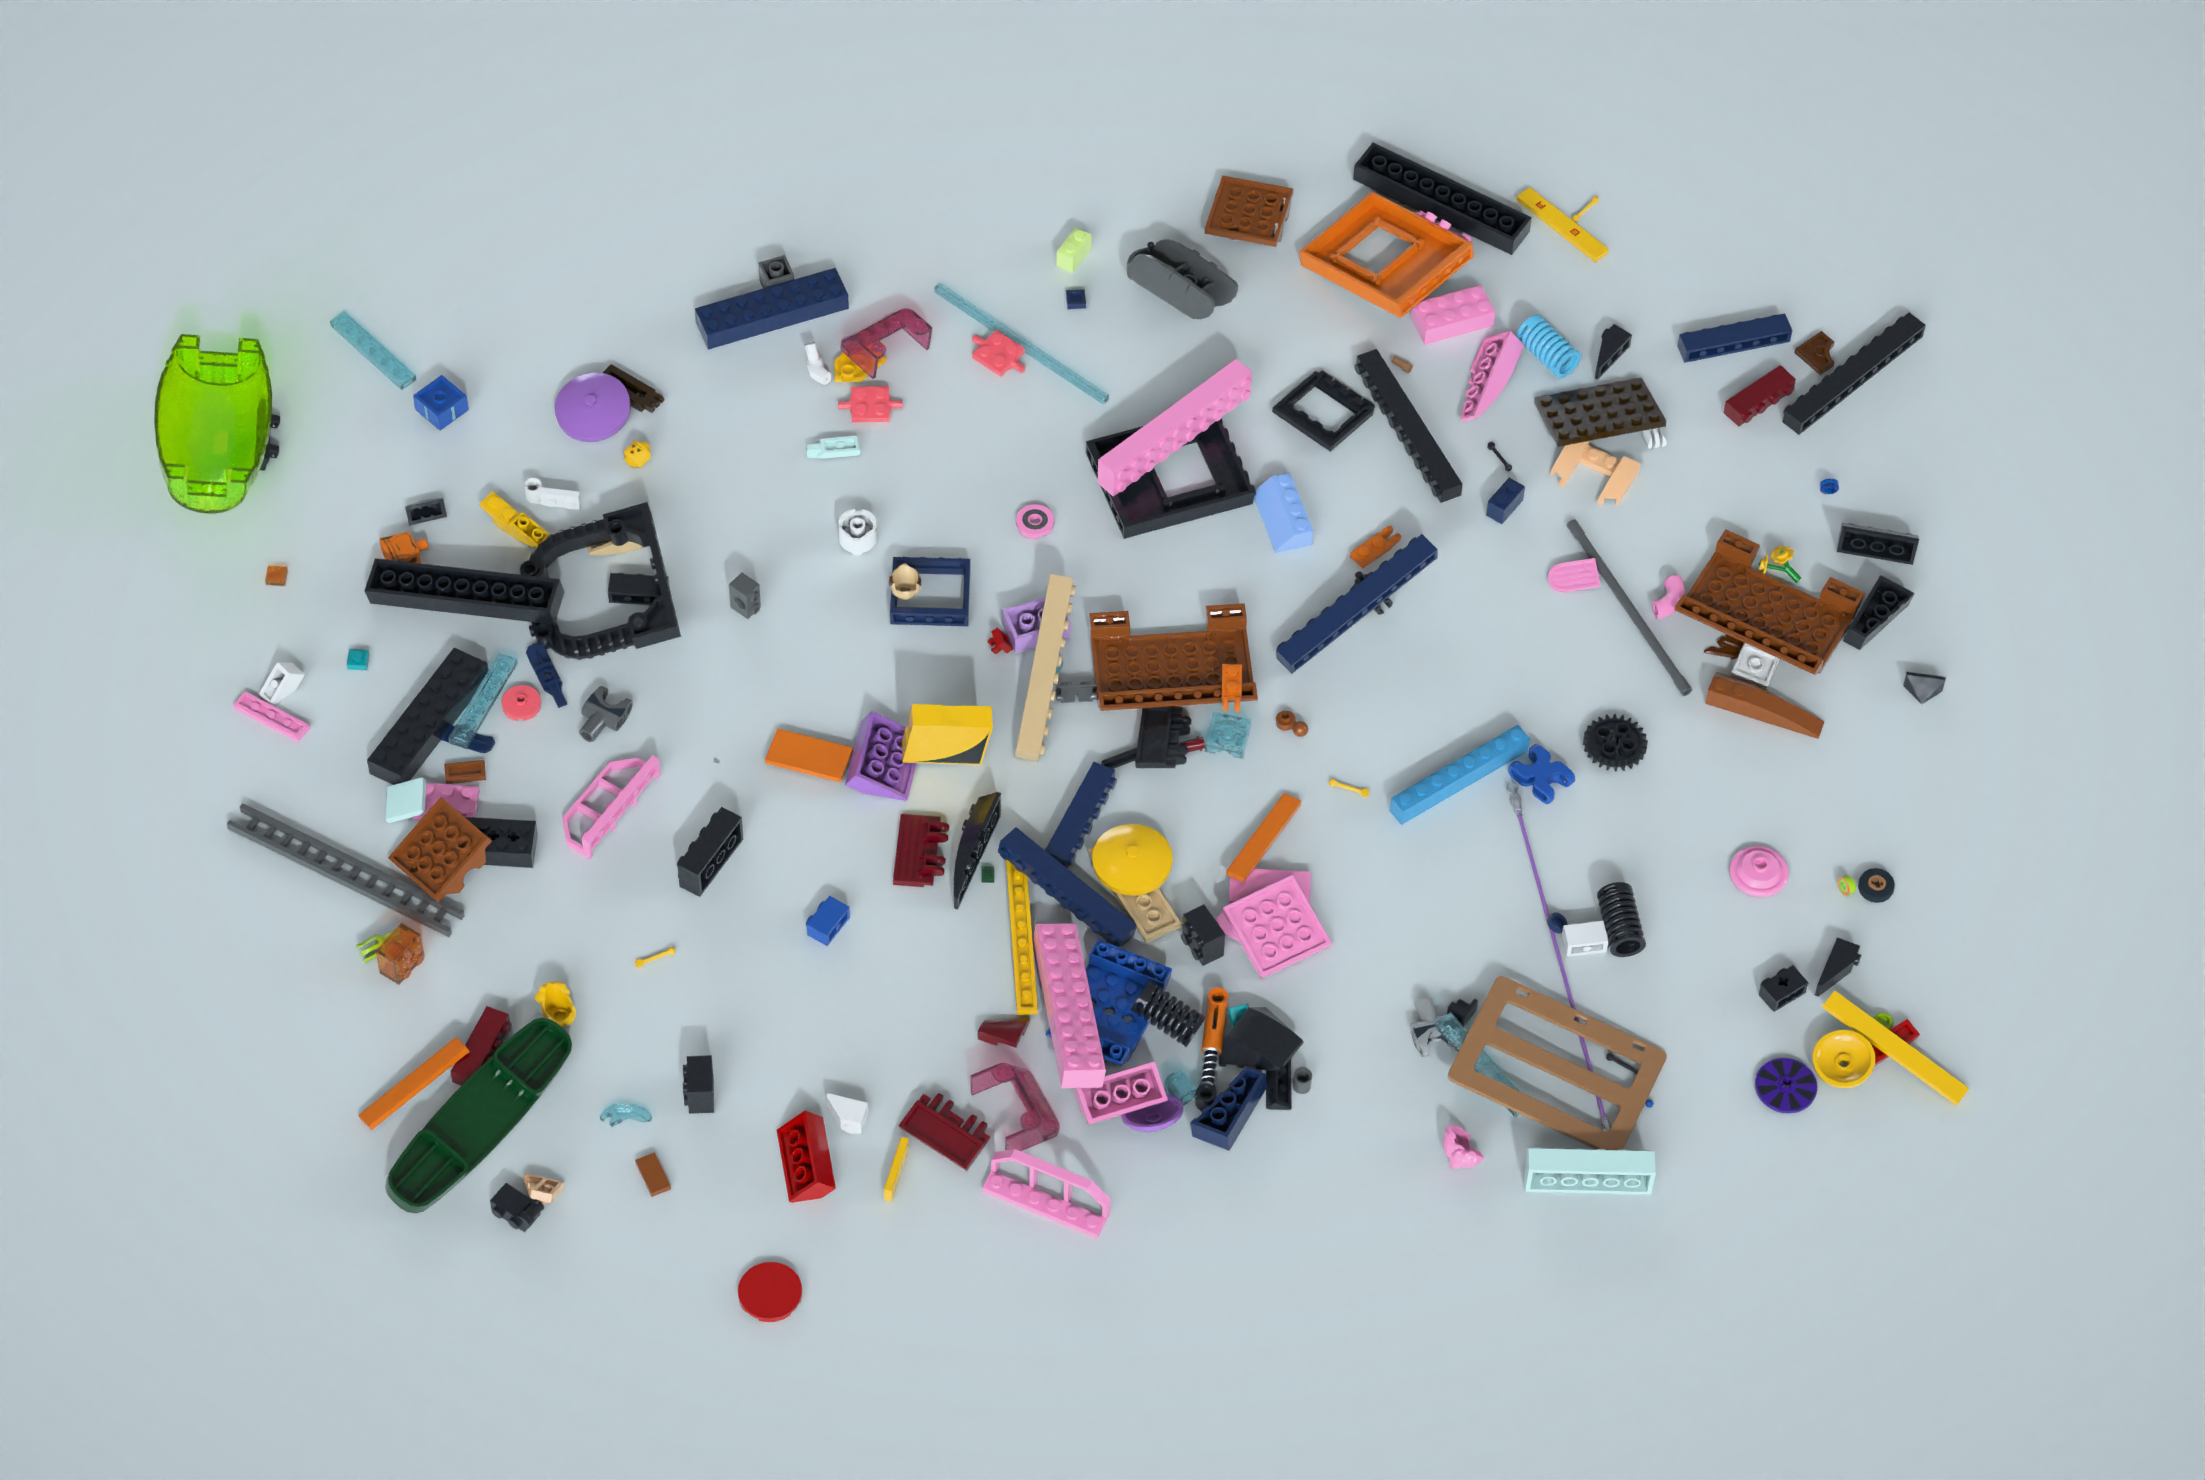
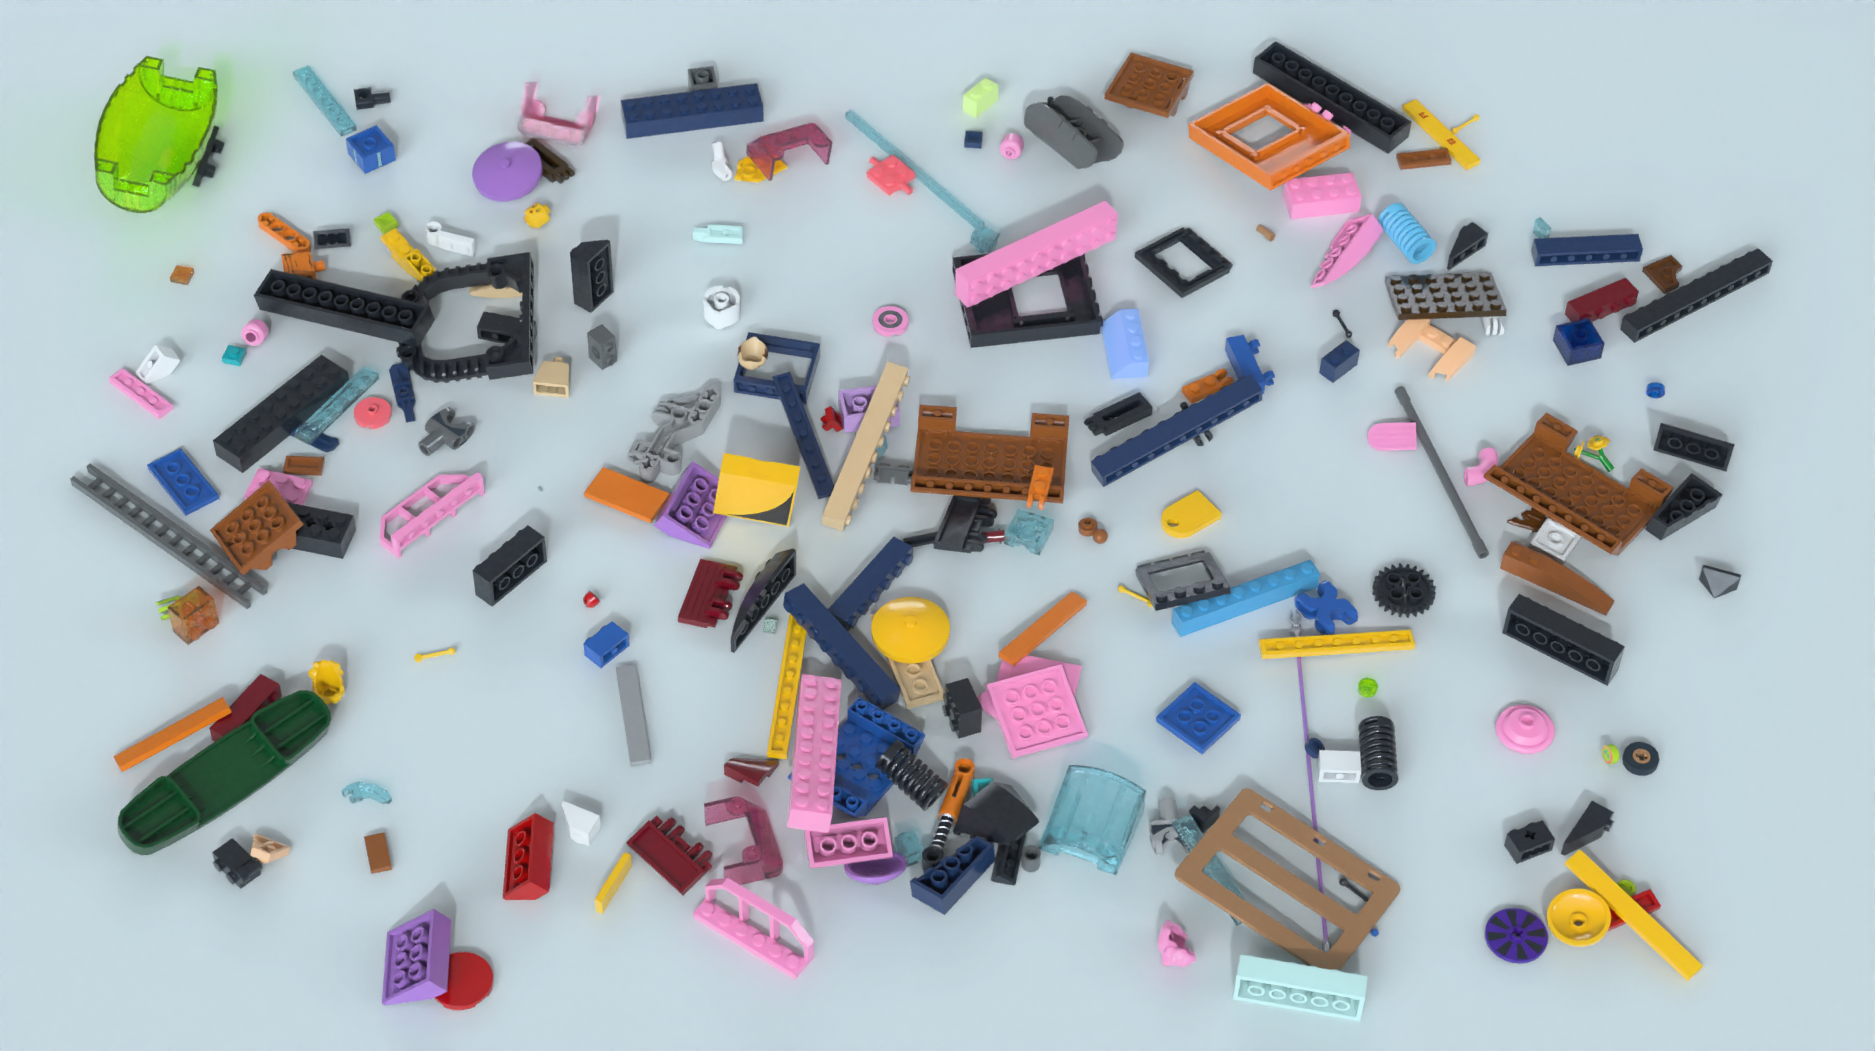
camera: 10 degrees right, 5 degrees down
(344, 808) = (183, 482): none -> blue tile
(374, 510) = (286, 231): none -> orange beam
(374, 631) = (254, 332): none -> bright pink head
(405, 800) = (240, 481): light aqua tile -> none
(418, 343) = (366, 99): none -> black piece
(478, 484) = (385, 222): none -> lime plate
(628, 349) = (535, 124): none -> clear pink windscreen
(698, 1084) = (442, 774): black brick -> none
(701, 637) = (552, 378): none -> tan torso
(716, 517) = (591, 273): none -> black slope
(723, 1278) = (417, 959): none -> medium lavender slope
(800, 874) = (590, 600): none -> hinge
(845, 673) = (677, 427): none -> light grey beam
(870, 404) = (762, 202): coral plate -> none
(872, 991) = (633, 715): none -> light grey tile
(976, 663) = (803, 435): none -> dark blue tile
(1113, 414) = (984, 239): none -> clear light blue brick
(1119, 302) = (1011, 146): none -> bright pink head
(1296, 590) = (1122, 414): none -> black hinge
(1356, 1029) = (1094, 817): none -> clear light blue windscreen
(1386, 691) = (1189, 515): none -> yellow tile
(1402, 781) = (1181, 595): none -> hinge
(1408, 426) = (1260, 285): black brick -> none
(1408, 515) = (1243, 361): none -> blue brick
(1436, 909) = (1198, 718): none -> blue plate
(1549, 255) = (1423, 159): none -> dark orange tile
(1558, 810) = (1336, 644): none -> yellow tile
(1597, 851) = (1367, 687): none -> clear neon green tile
(1685, 321) = (1541, 228): none -> clear light blue tile
(1743, 444) = (1578, 341): none -> clear blue brick
(1781, 772) = (1563, 639): none -> black brick

